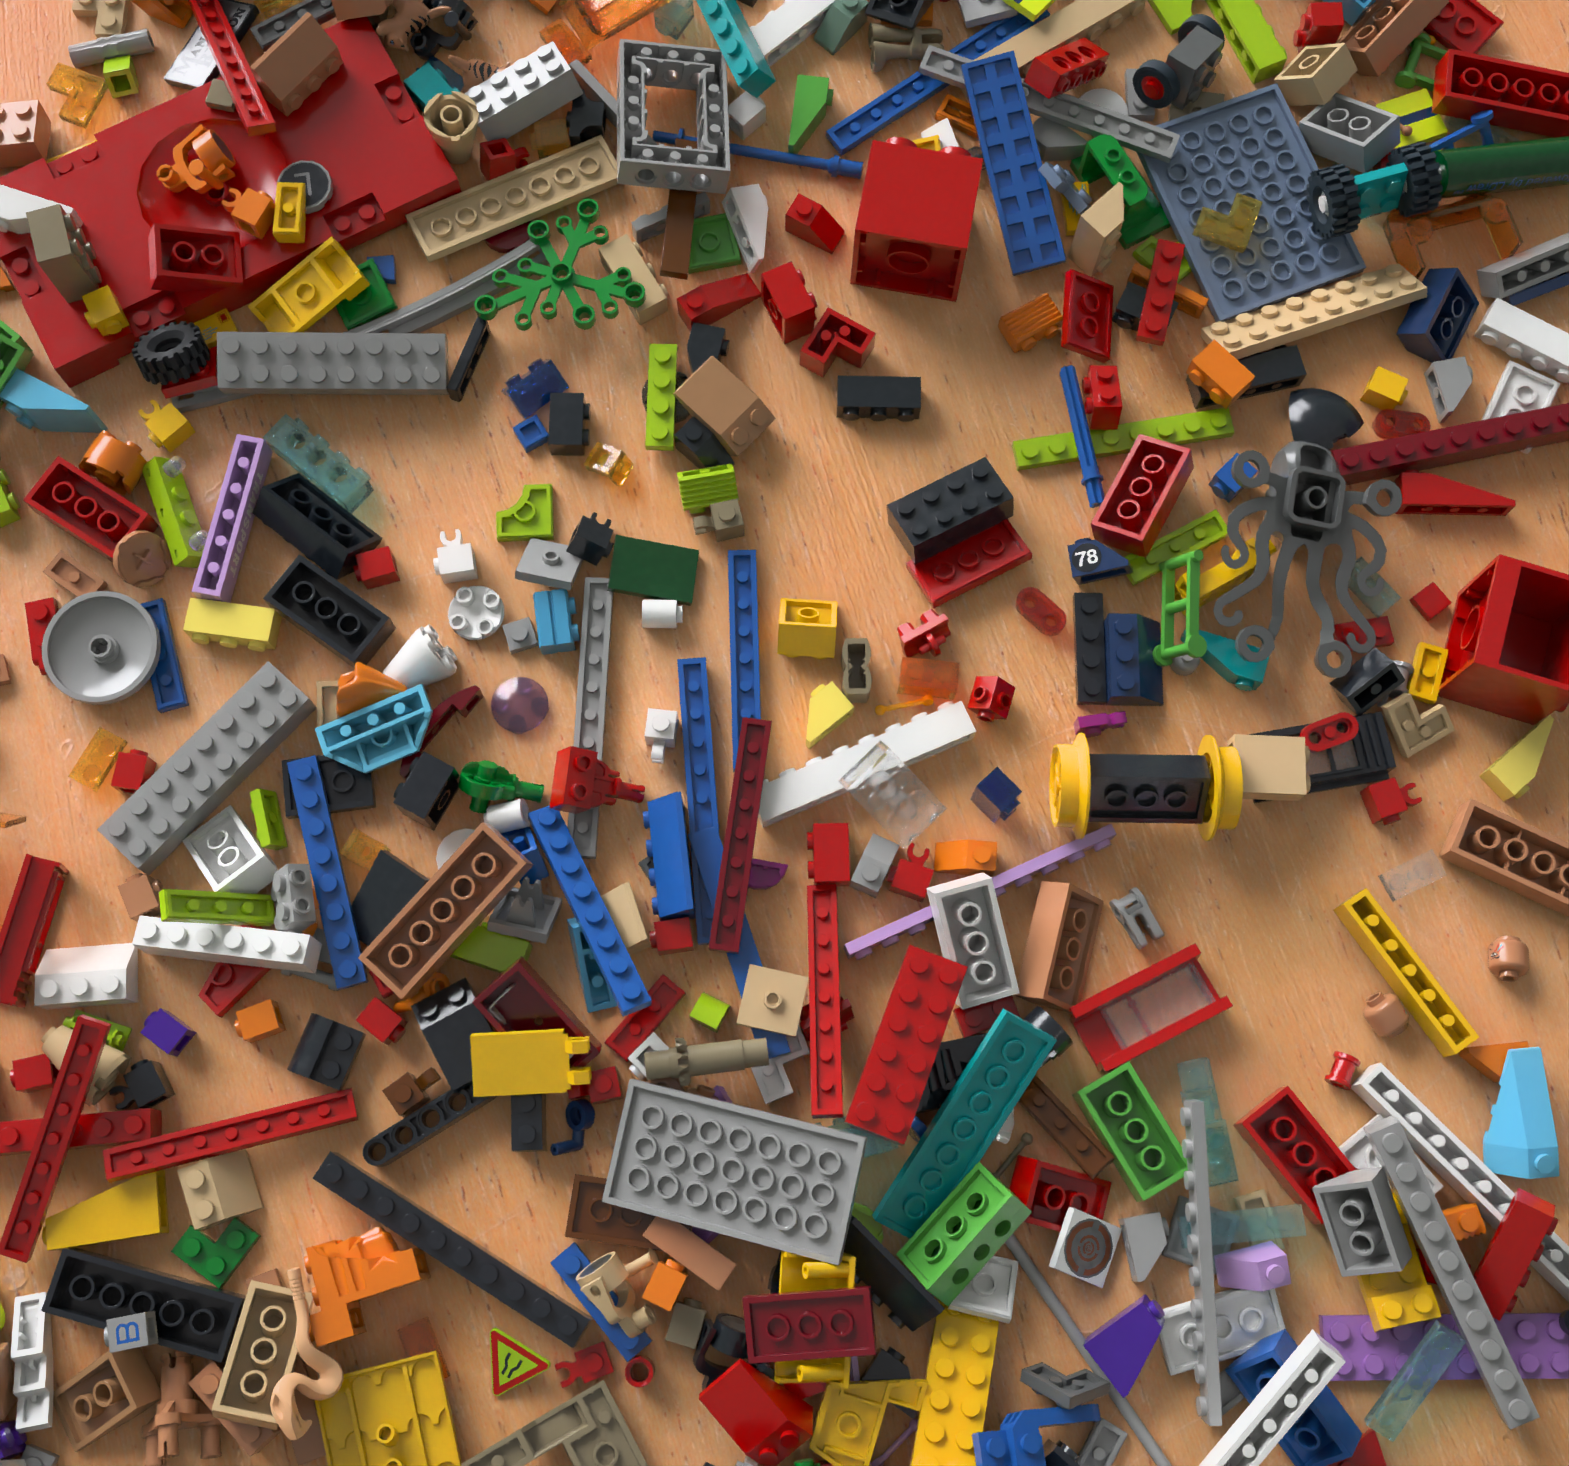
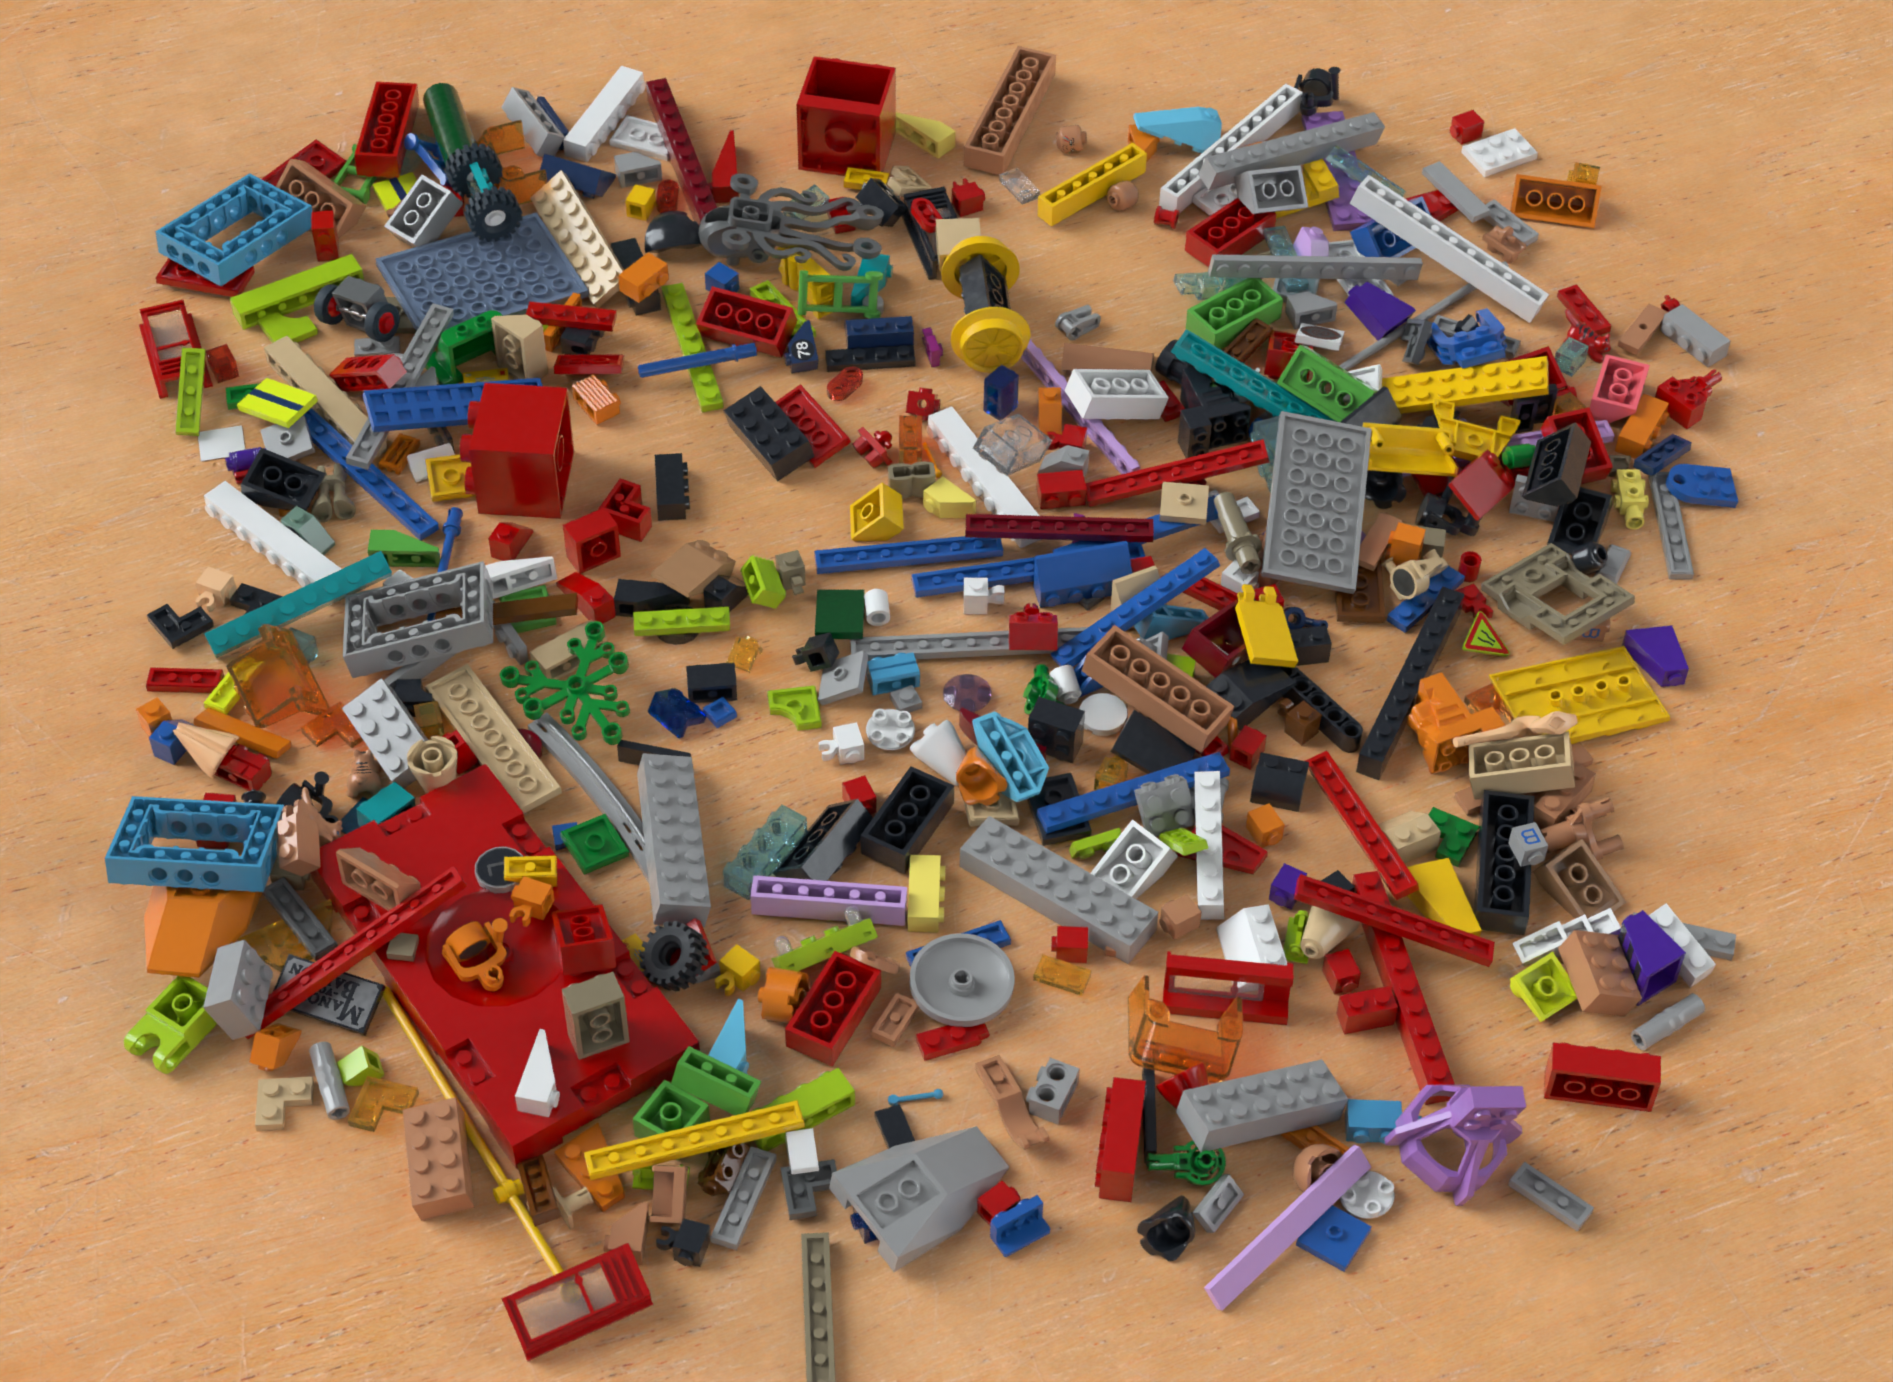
camera: 95 degrees left, 25 degrees down
(104, 311) = (642, 998): yellow brick -> none
(310, 290) = (604, 870): yellow piece -> none
(709, 1012) = (1196, 544): lime brick -> none
(809, 1325) = (1415, 445): dark red plate -> none
(905, 1045) = (1206, 407): red brick -> none
(1063, 182) = (477, 373): sand blue plate -> none
(1102, 398) = (662, 346): red brick -> none
(1146, 1009) = (1147, 308): piece -> none
(1231, 229) = (510, 277): clear yellow plate -> none
(1316, 74) = (368, 234): tan brick -> none
(1430, 601) = (808, 179): red tile -> none
(1513, 1249) = (1264, 118): red brick -> none

